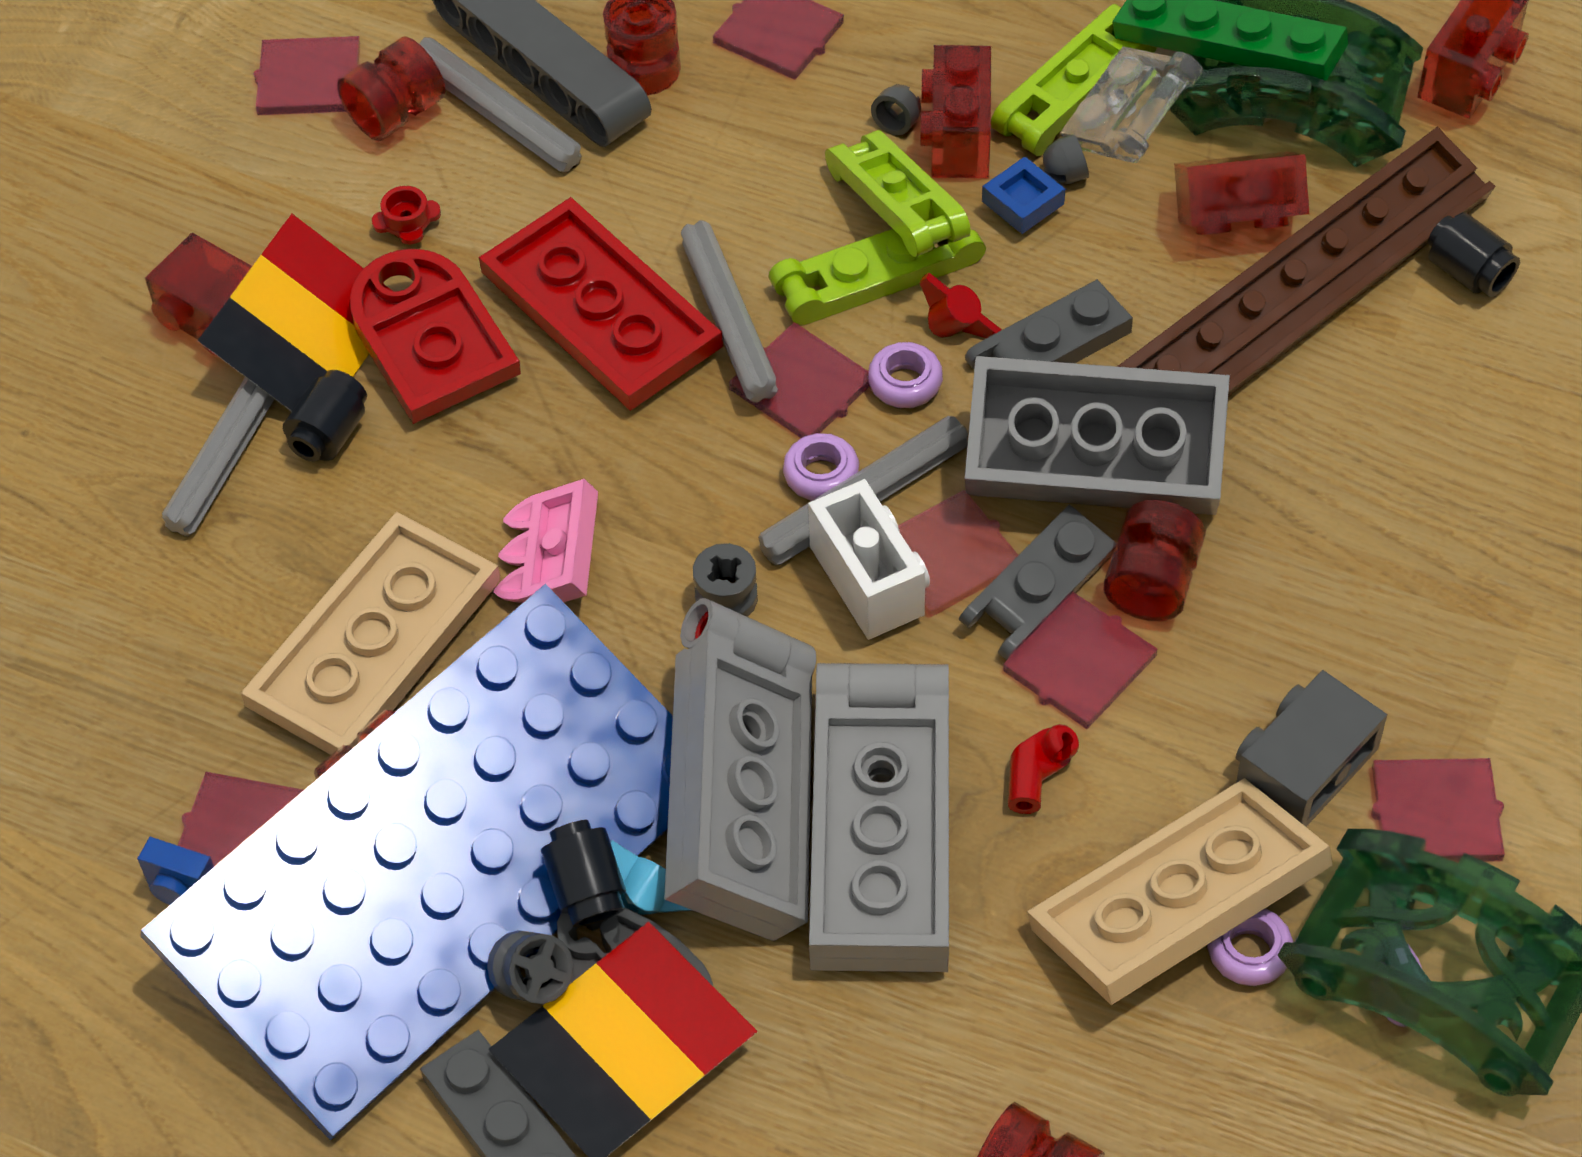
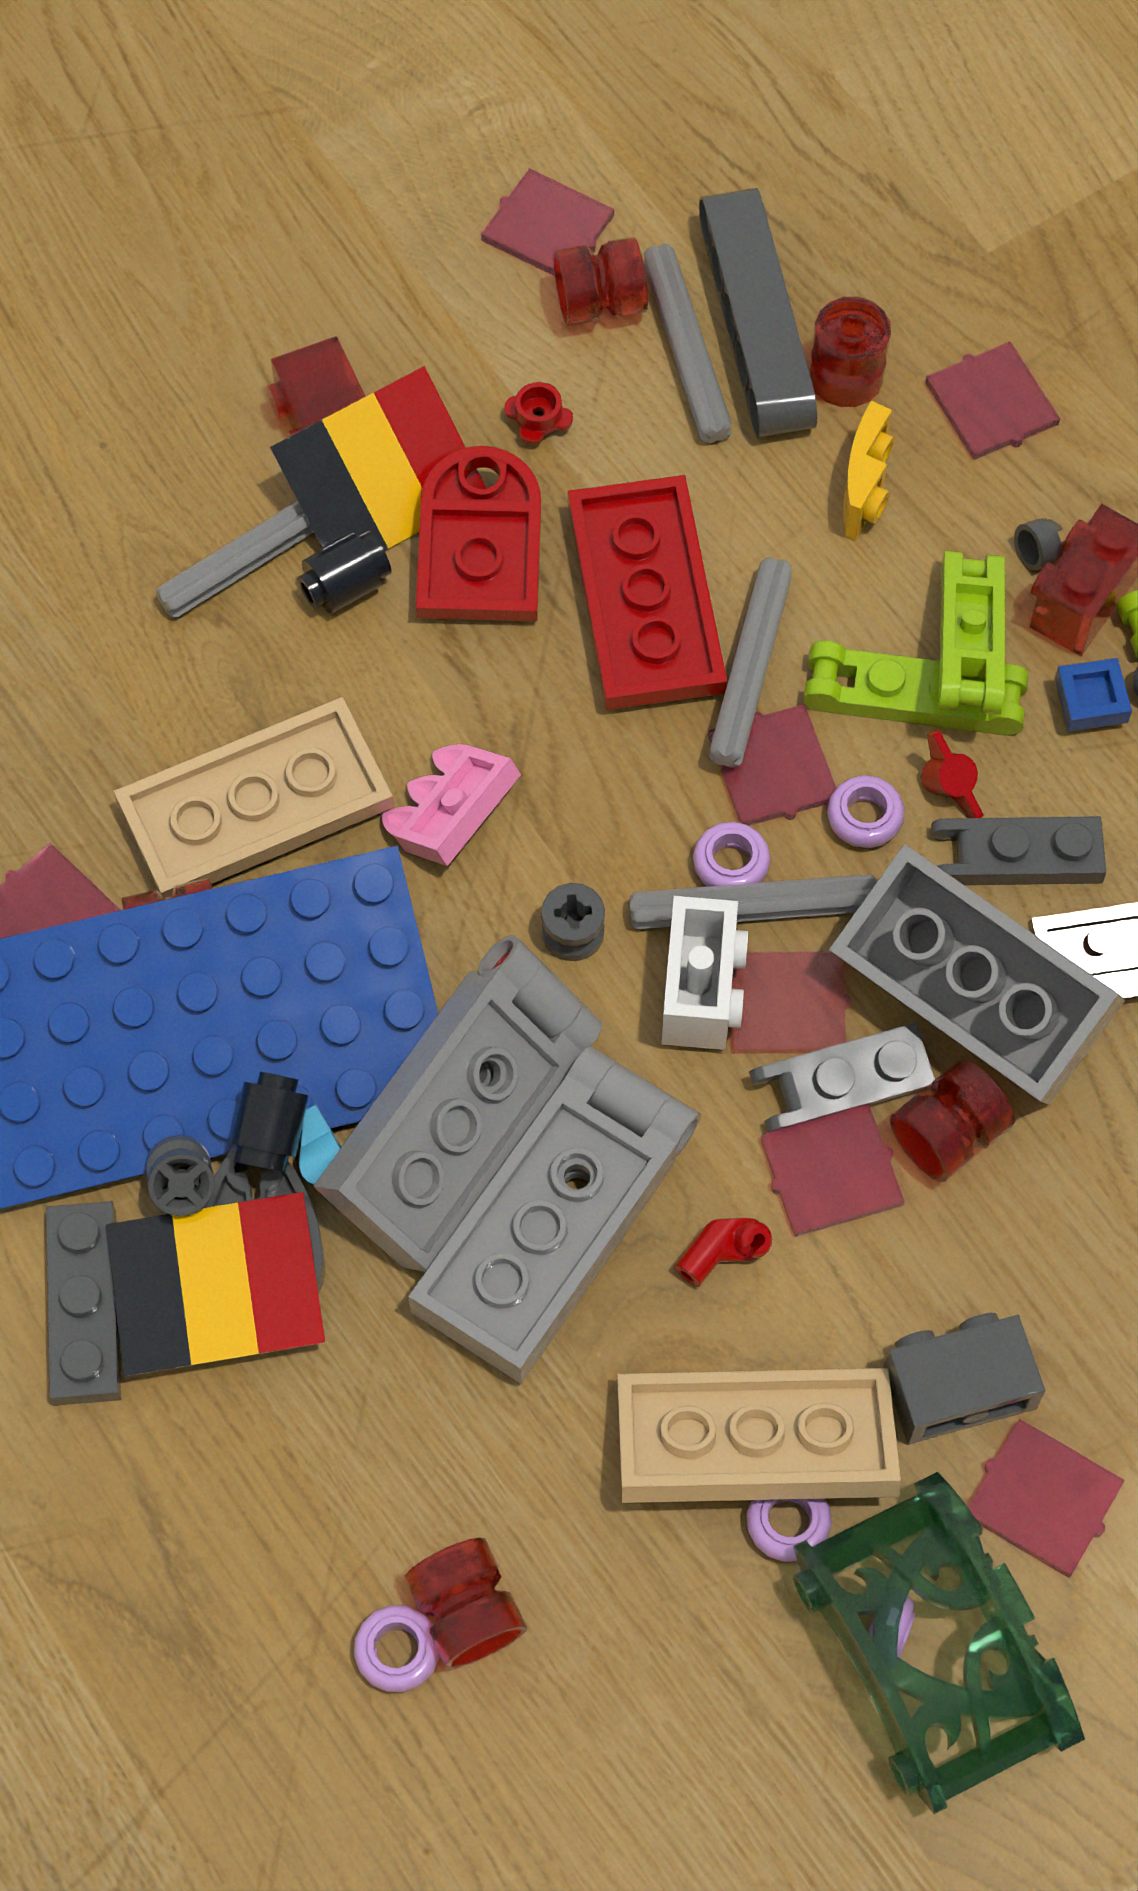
camera: 30 degrees right, 10 degrees up
(719, 124) = (864, 490): none -> yellow slope

